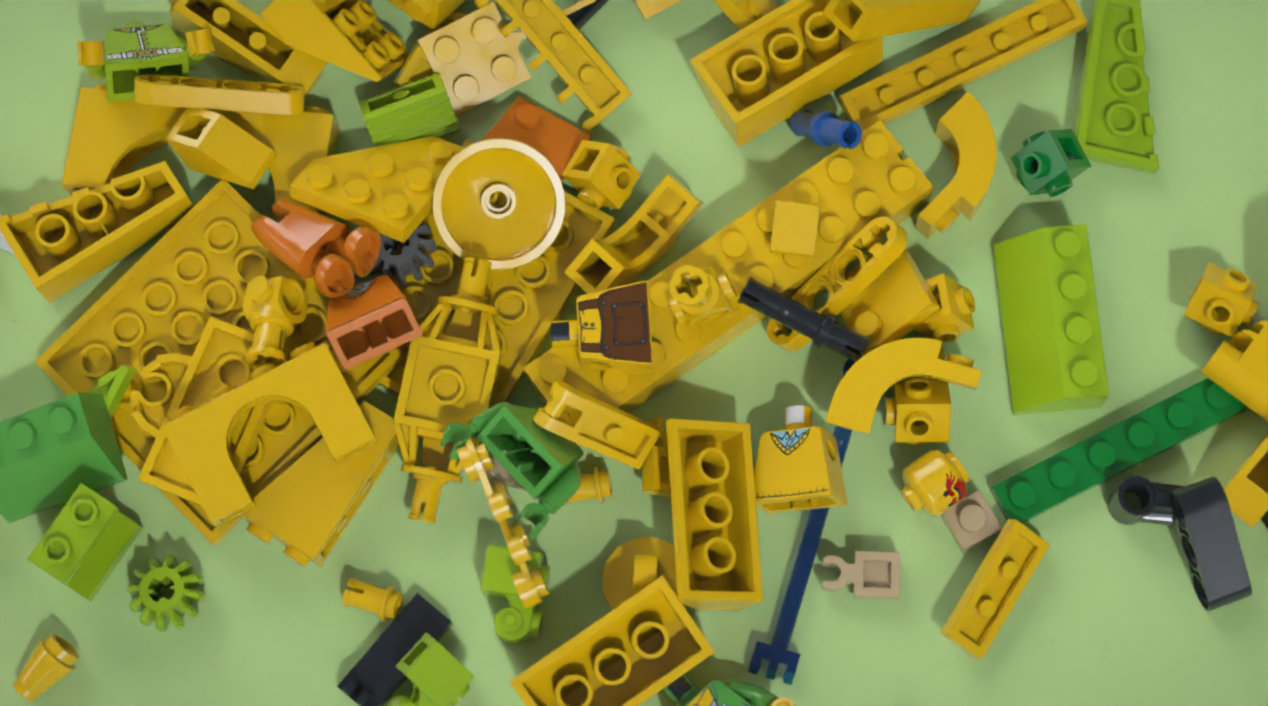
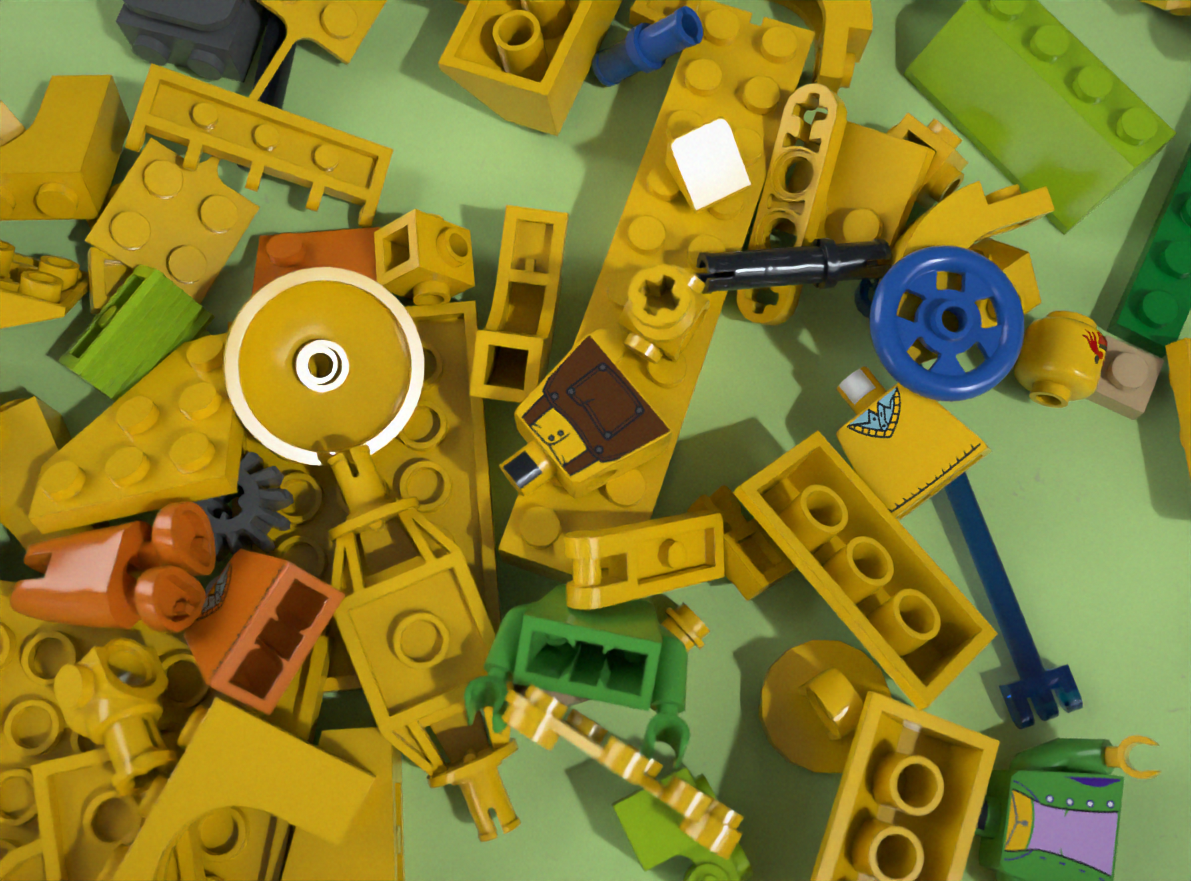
camera: 45 degrees left, 0 degrees up
(872, 575) = (1068, 515): tan plate -> none
(881, 441) = (895, 335): none -> blue plate

